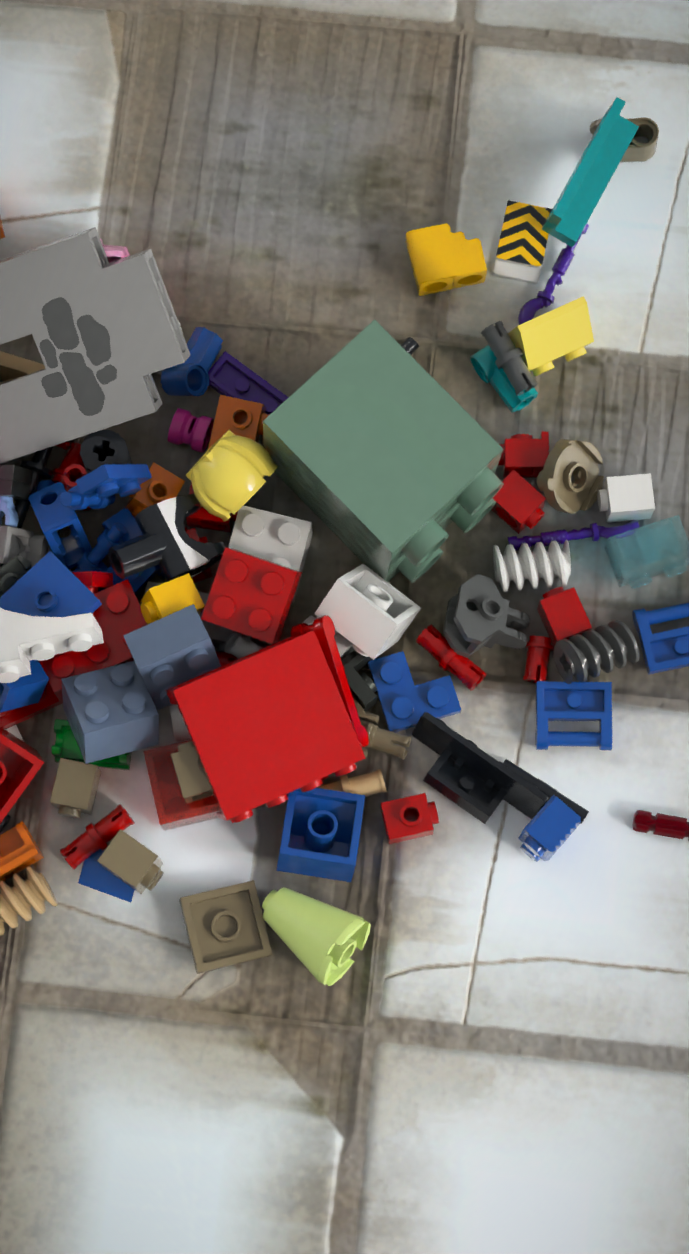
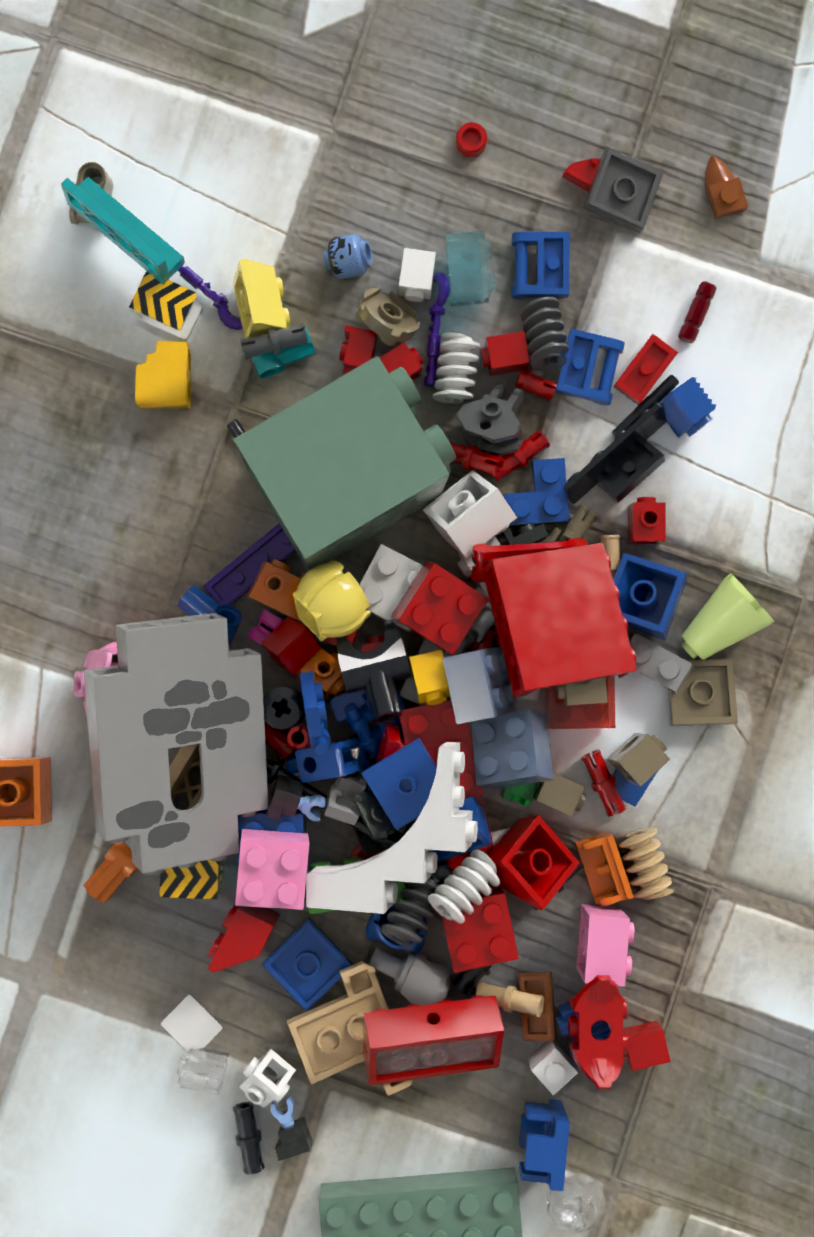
camera: 75 degrees left, 10 degrees up
(176, 450) = (291, 645): none -> red brick
(247, 865) = (660, 664): none -> light grey plate
(434, 603) = (473, 458): none -> red pin
(586, 779) = (645, 369): none -> red plate
(629, 420) = (348, 256): none -> medium blue head

